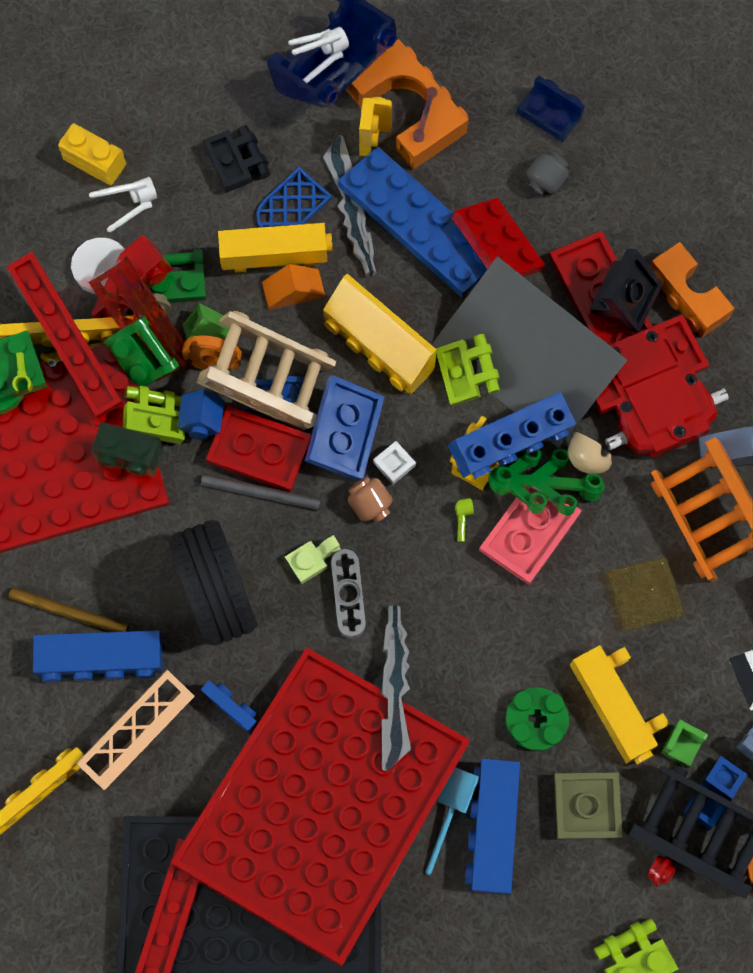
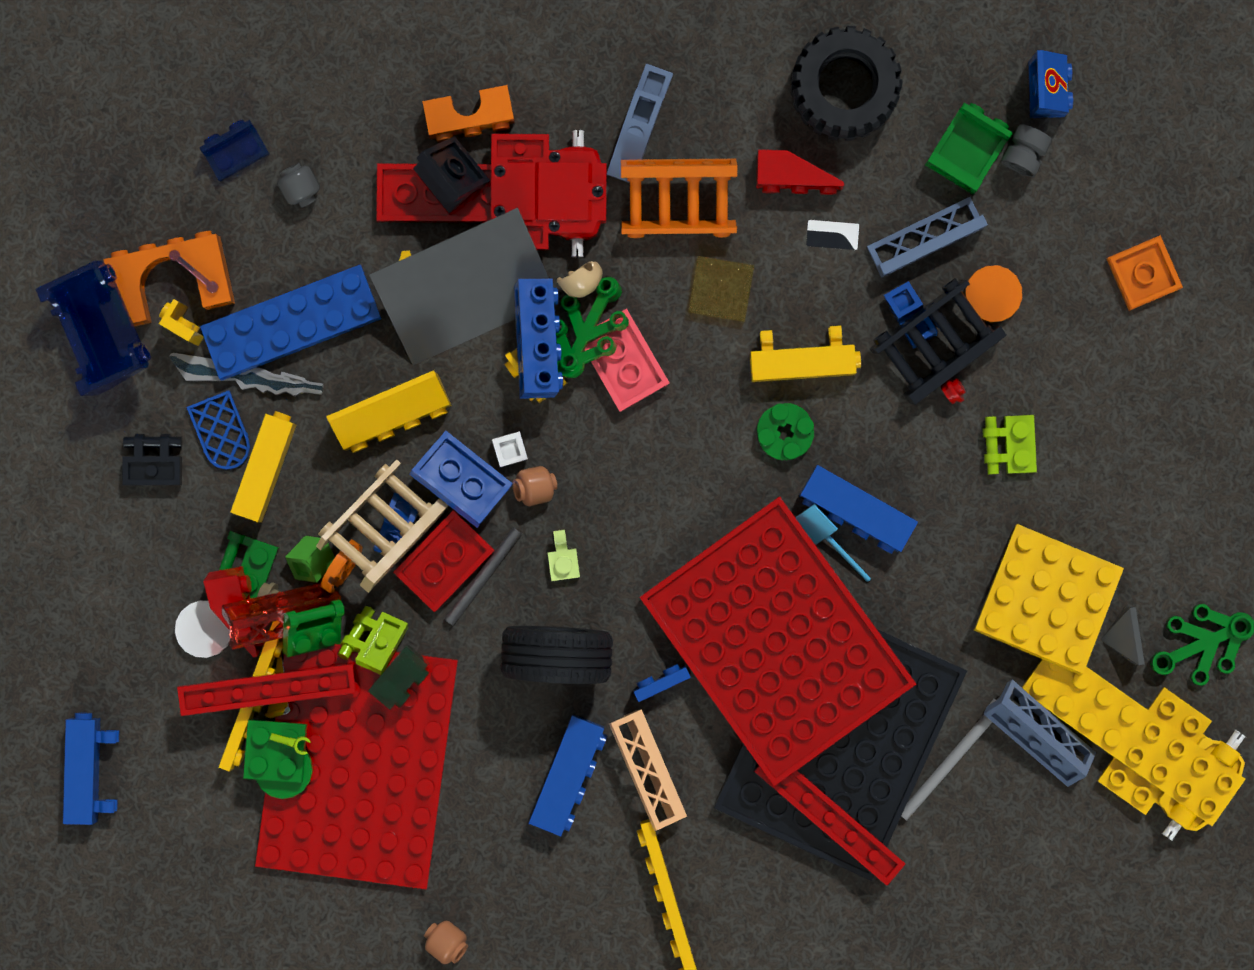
camera: 65 degrees left, 15 degrees up
(67, 611) = (520, 780): pearl gold bar -> none
(92, 154) = (91, 592): yellow brick -> none
(140, 191) = (147, 562): white plant -> none
(201, 414) = (392, 599): blue brick -> none
(292, 286) = (304, 464): orange slope -> none
(331, 42) = (82, 323): white plant -> none
(337, 572) = (612, 552): light grey beam -> none
(394, 729) = (706, 538): light grey sword -> none
(459, 373) = (451, 354): lime plate -> none
(463, 508) = (577, 407): lime hand -> none
(495, 234) = (342, 261): red plate -> none
(587, 806) = (875, 424): olive plate -> none
(683, 743) = (860, 321): bright green panel -> none

